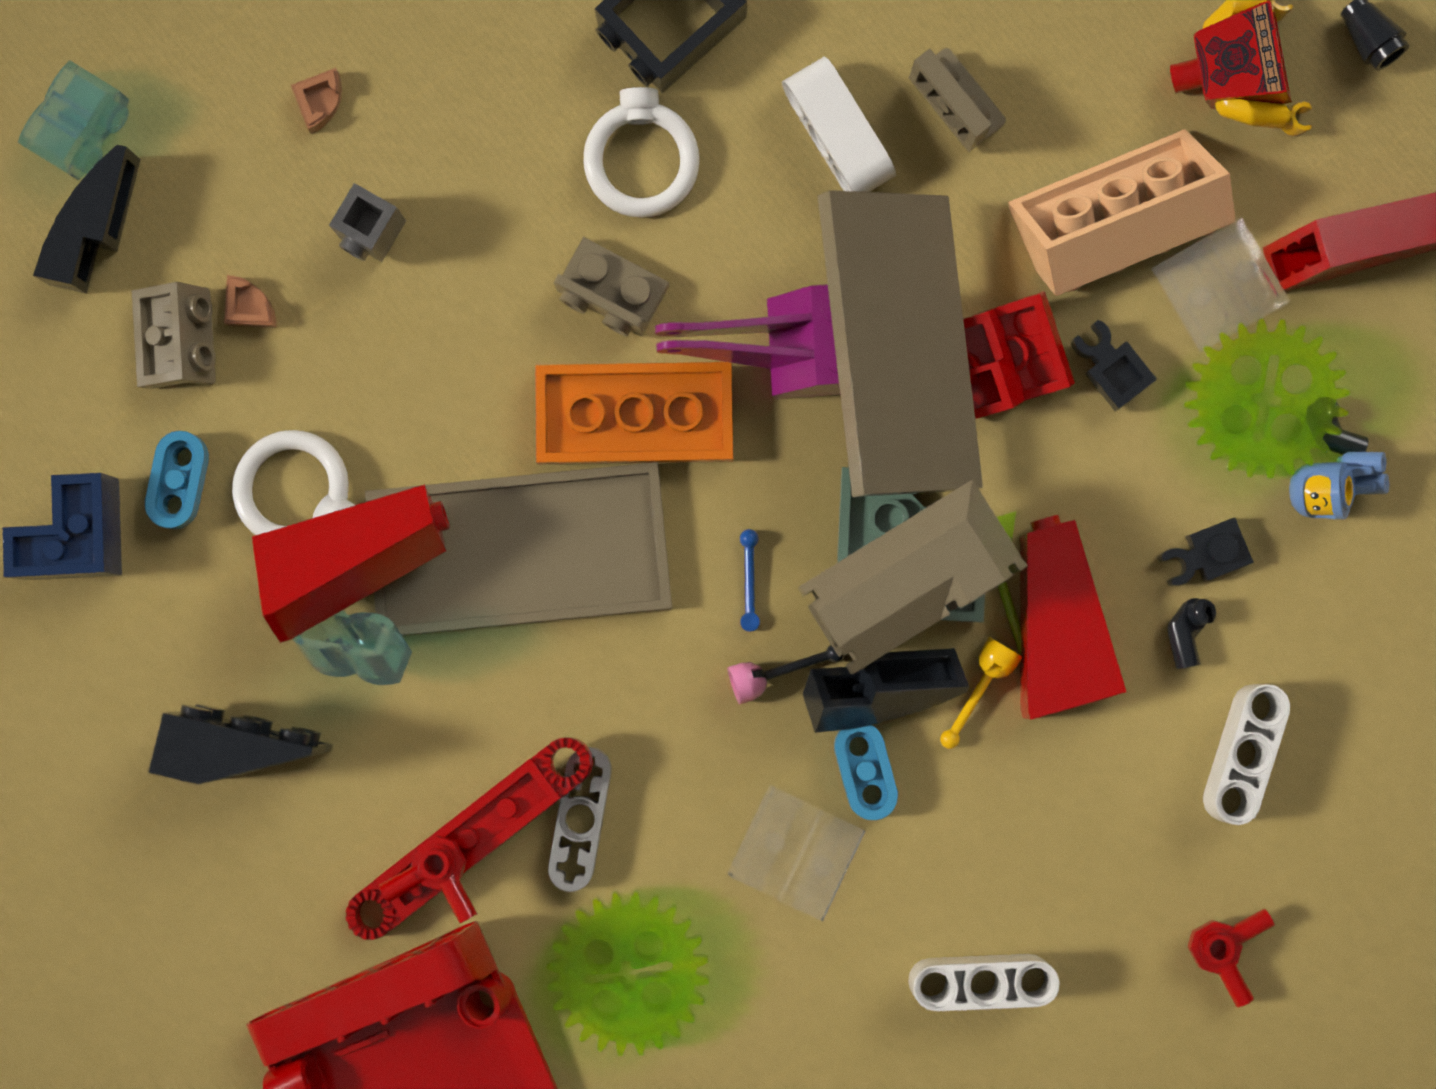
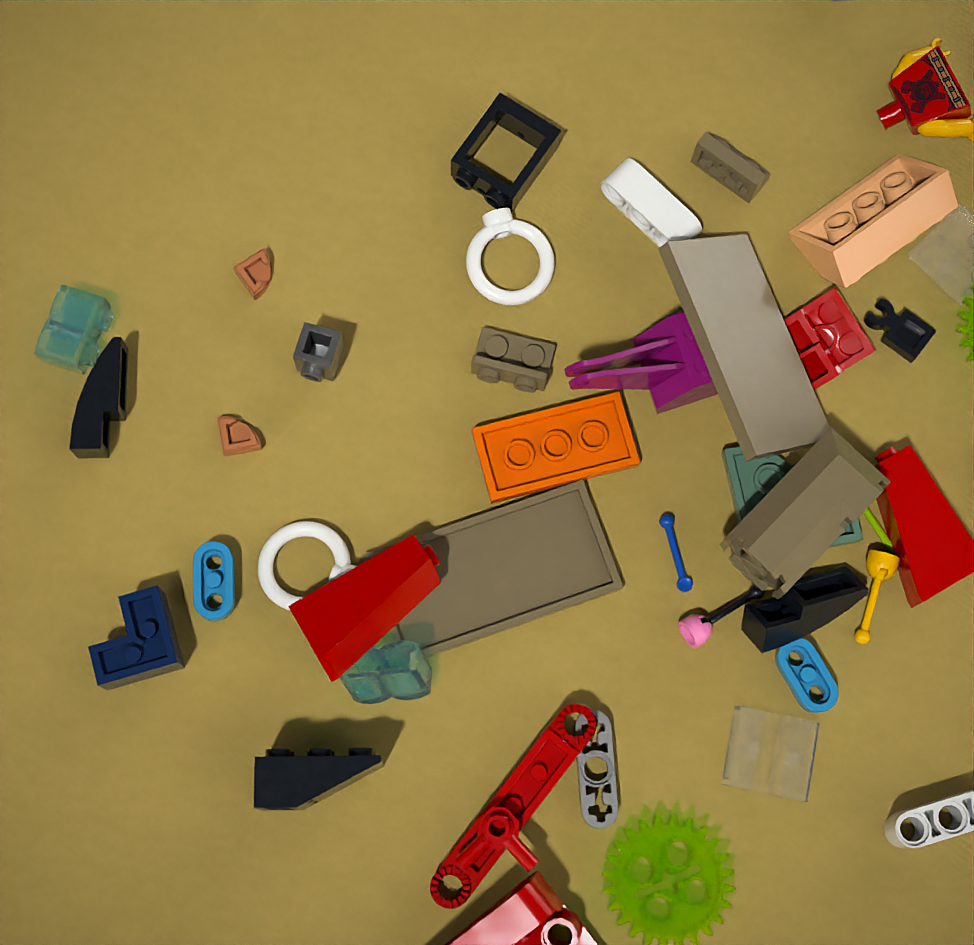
camera: 20 degrees left, 10 degrees down
(173, 335) = (185, 471): dark tan bracket -> none

